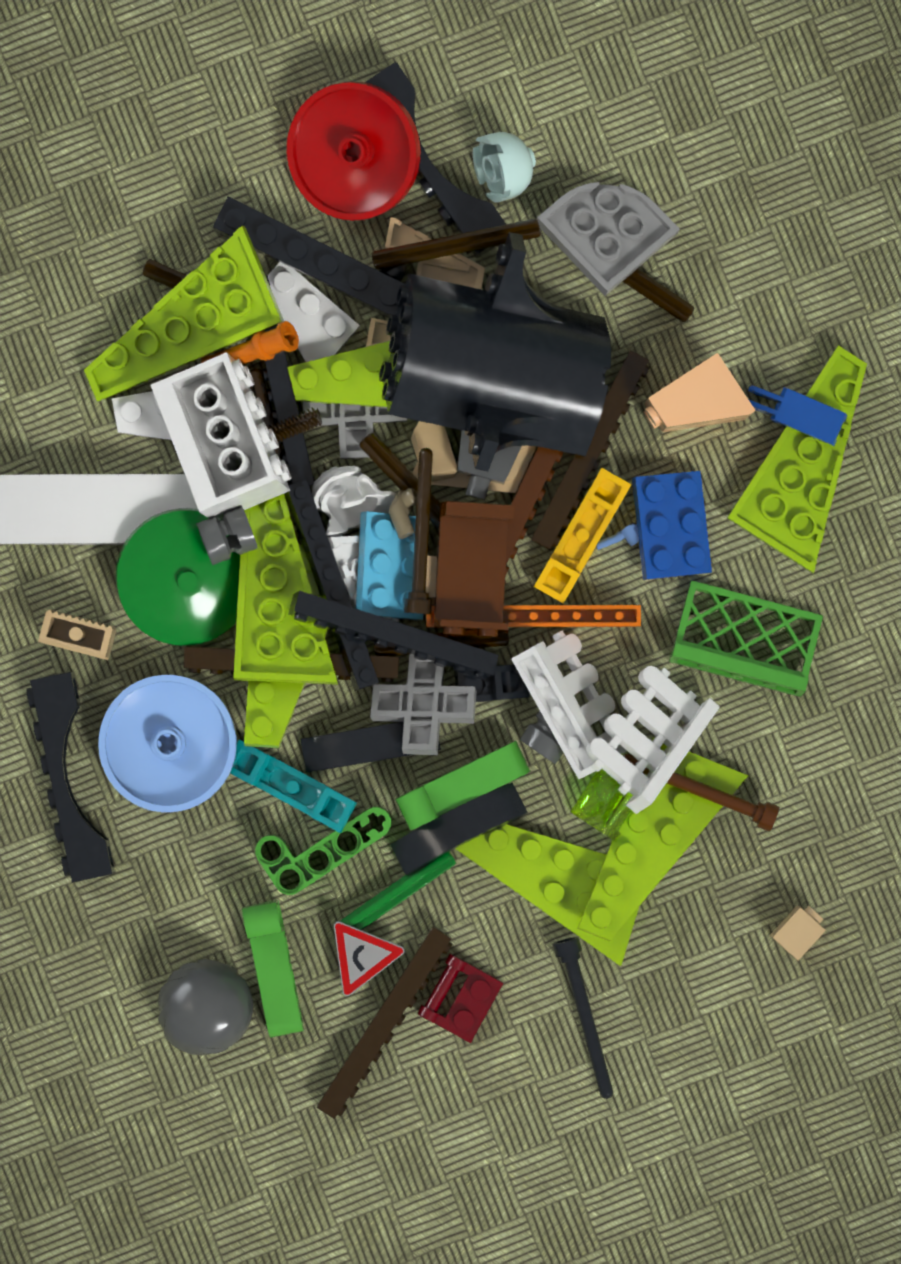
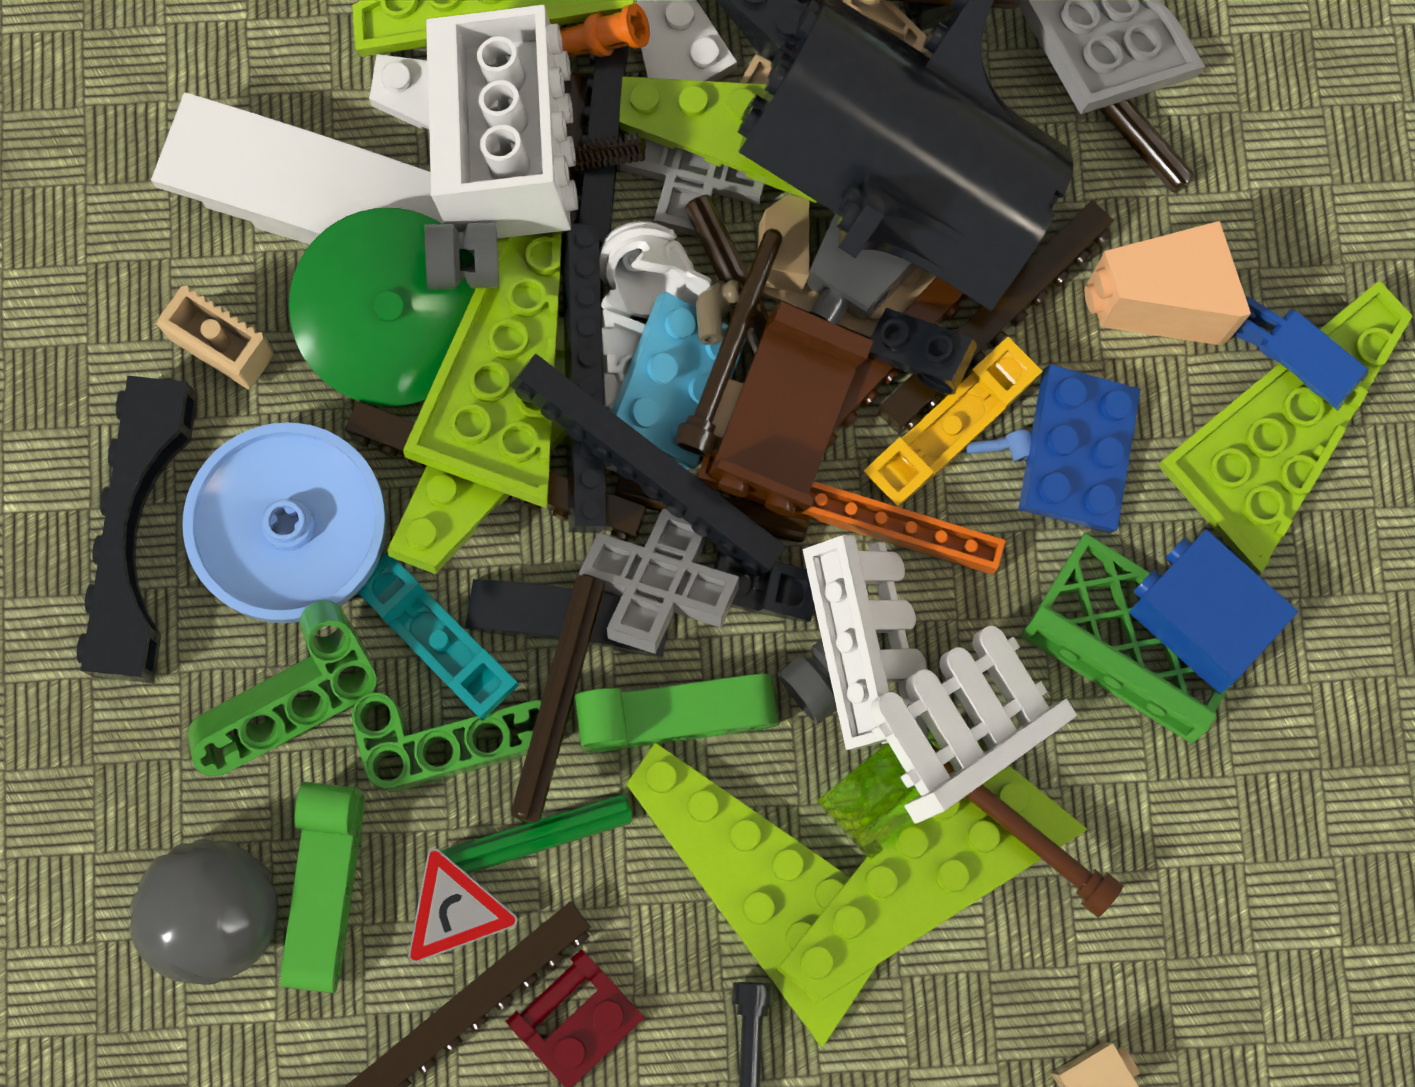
camera: 20 degrees right, 10 degrees down
(211, 858) = (276, 697): none -> bright green beam
(385, 803) = (557, 699): none -> dark brown axle
(458, 827) = (652, 768): black slope -> none
(547, 496) = (927, 350): none -> black plate
(786, 609) = (1211, 610): none -> blue brick

